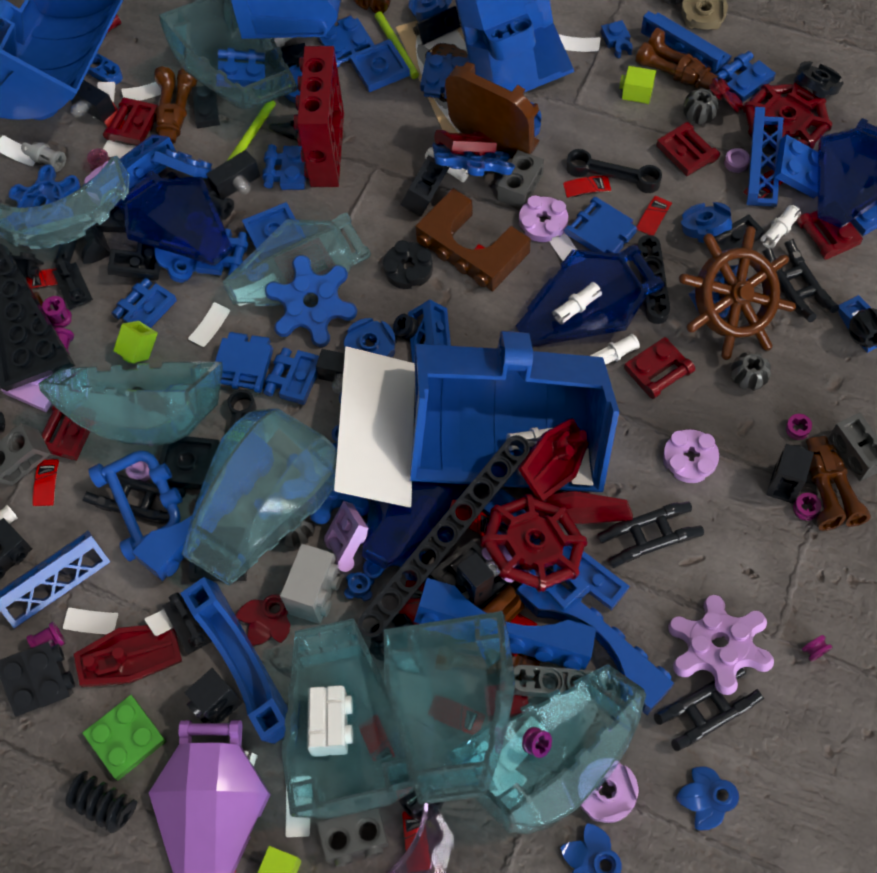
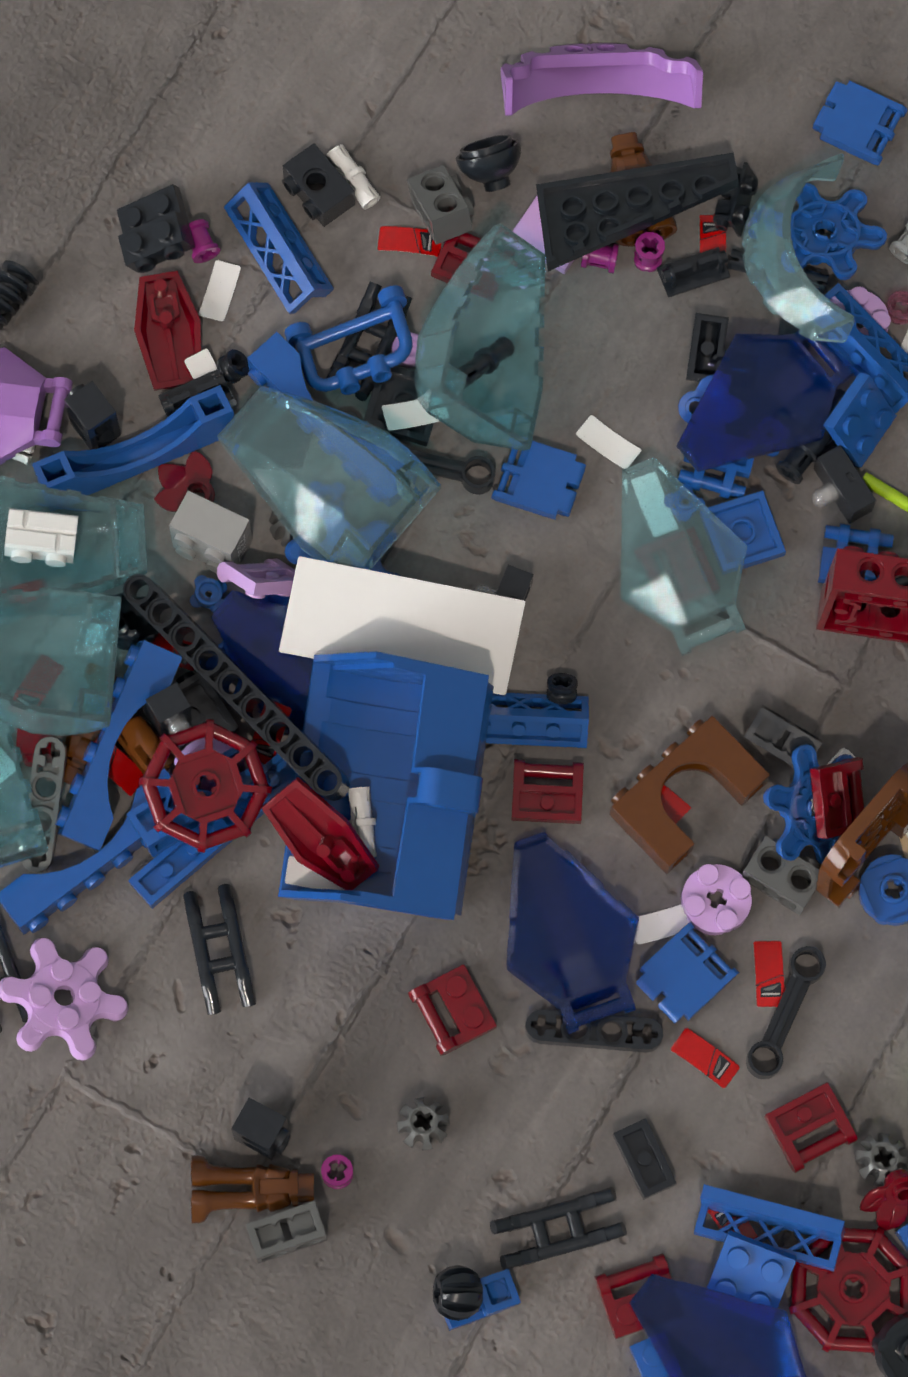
camera: 90 degrees right, 10 degrees up
(96, 246) = (747, 302): black tile -> none
(124, 737) = (74, 325): bright green plate -> none
(135, 342) = (583, 346): lime brick -> none
(149, 308) = (639, 367): blue plate -> none
(159, 595) = (233, 366): none -> black bush
(195, 450) = (406, 415): none -> white sticker
(299, 378) = (505, 548): blue plate -> none
(314, 318) = (629, 581): blue plate -> none
(372, 330) = (554, 624): blue plate -> none
(403, 253) = (661, 686): black plate -> none
(492, 320) = (547, 802): none -> dark red plate
(577, 303) = (562, 916): white pin -> none
(590, 508) = (255, 865): dark red piece -> none
(616, 350) = (484, 954): white axle -> none
(700, 444) = (334, 1011): lavender plate -> none
(703, 220) = (656, 1127): blue plate -> none
(732, 290) = (542, 1110): reddish brown brick -> none
(737, 160) = (784, 1192): lavender tile -> none
(780, 226) = (653, 1226): white pin -> none
(808, 498) = (229, 1142): magenta bush -> none
(817, 648) = (38, 1112): magenta bush -> none

